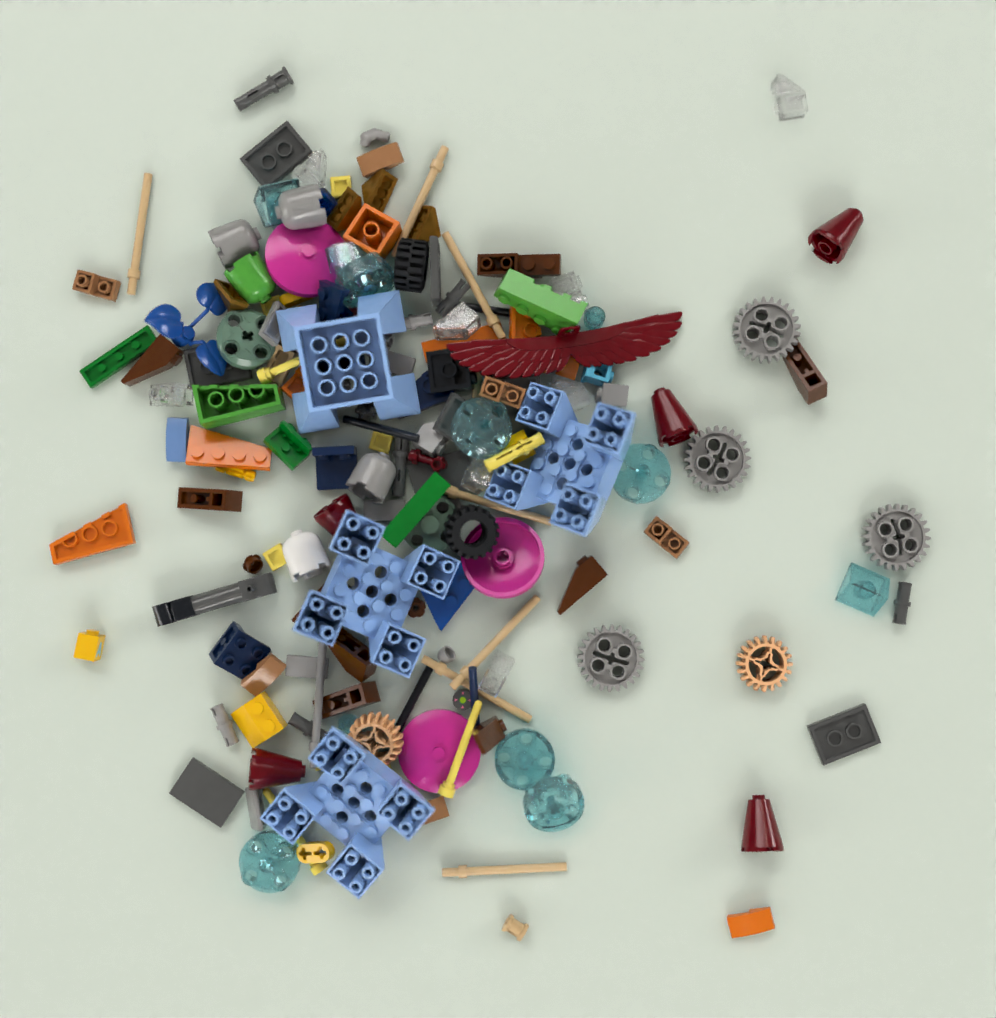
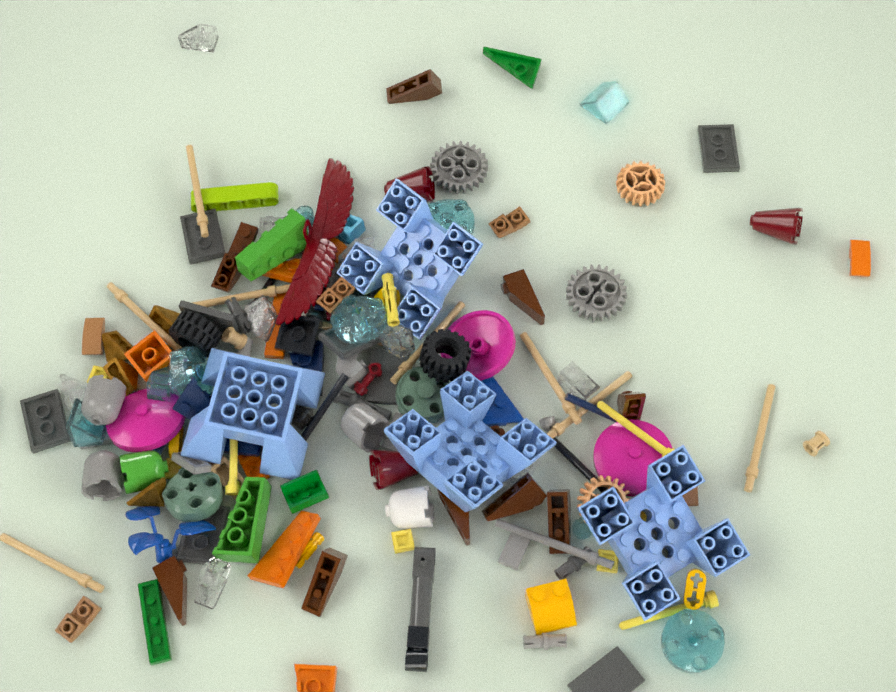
camera: 70 degrees left, 25 degrees down
(177, 439) = (256, 591): medium blue slope -> none
(238, 651) = (478, 603): dark blue bracket -> none
(253, 564) = (401, 562): reddish brown plate -> none
(255, 808) = (636, 640): light grey slope -> none
(264, 675) = (511, 588): medium nougat slope -> none
(273, 769) = (602, 608): dark red cone -> none
(334, 466) = (340, 459): dark blue bracket -> none
(374, 134) = (69, 336): light grey arm -> none
(381, 442) = (333, 416): light yellow tile -> none
(415, 509) = (405, 389): green tile -> none
(423, 306) = (234, 338): none -> tan bush
(461, 699) = (592, 423): dark grey tile -> none
(524, 758) = (664, 386): clear light blue piece -> none
(537, 217) = (200, 248): none -> dark grey tile
(548, 210) = (202, 219): none -> tan bar
(553, 803) = (710, 370): clear light blue piece -> none
(593, 231) = (238, 197): none -> lime beam
(613, 395) = (374, 223): light grey brick -> none
(758, 347) = (370, 103): light grey gear -> none
(836, 236) = (320, 38): dark red cone -> none
(878, 478) = (520, 66): none -> green wing
(902, 603) = (625, 78): dark grey pin -> none
(914, 532) = (570, 67): light grey gear -> none

